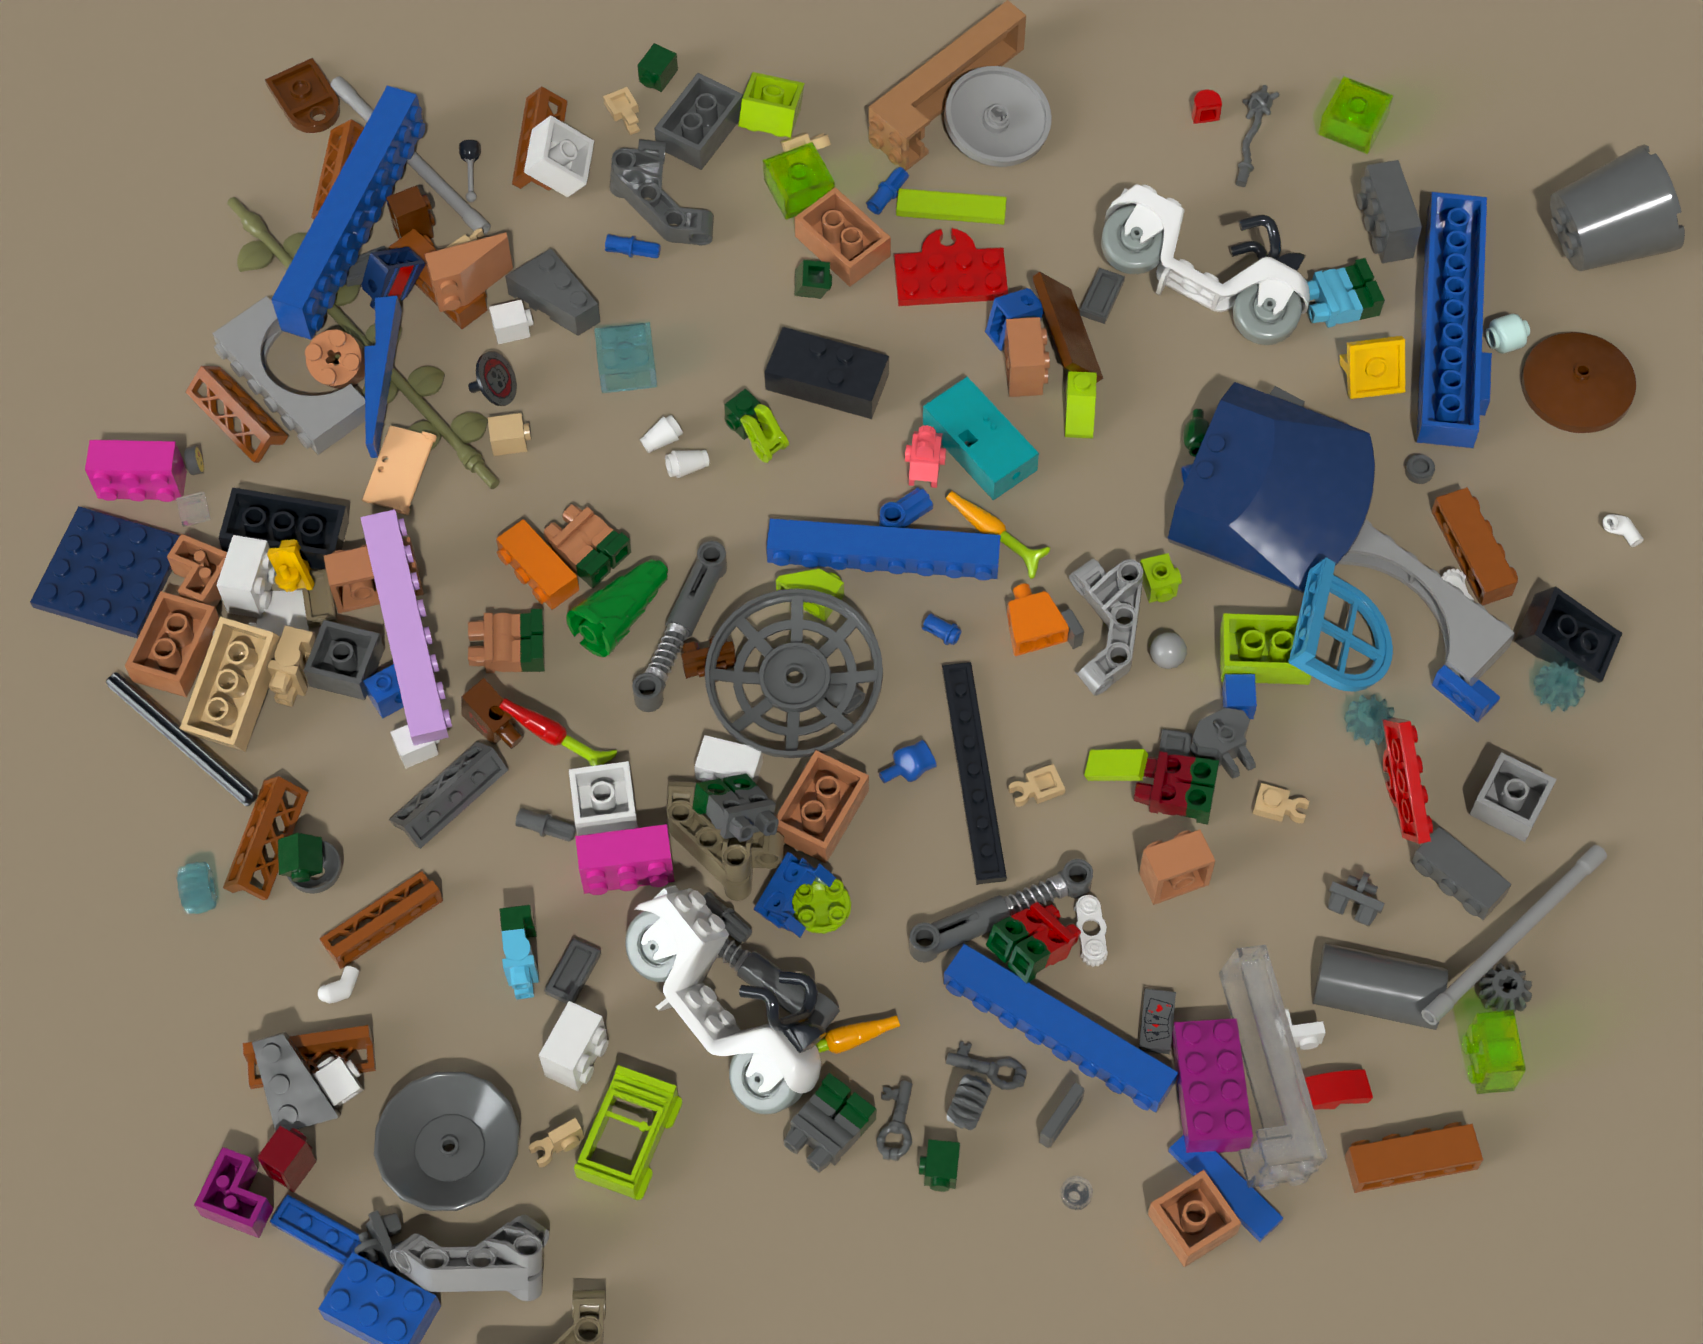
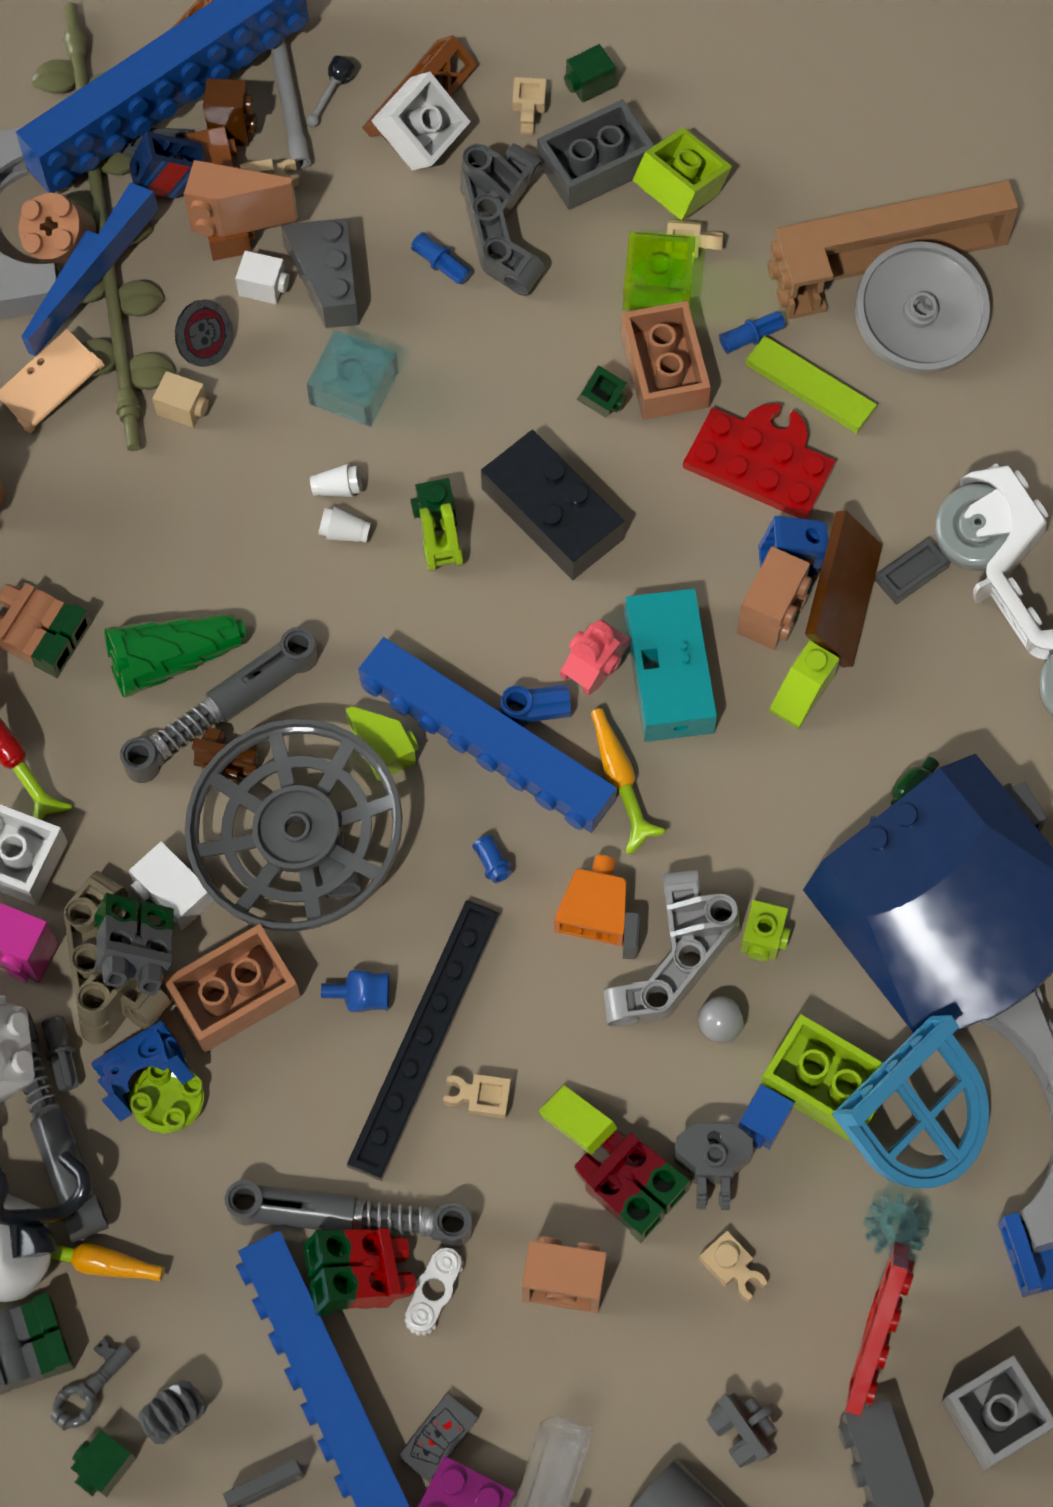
camera: 30 degrees right, 5 degrees up
(537, 565) = (117, 558): orange brick -> none
(587, 544) = (181, 551): hips -> none
(990, 1069) = (225, 1387): dark grey piece -> none
(1175, 742) = (660, 1132): dark grey tile -> none

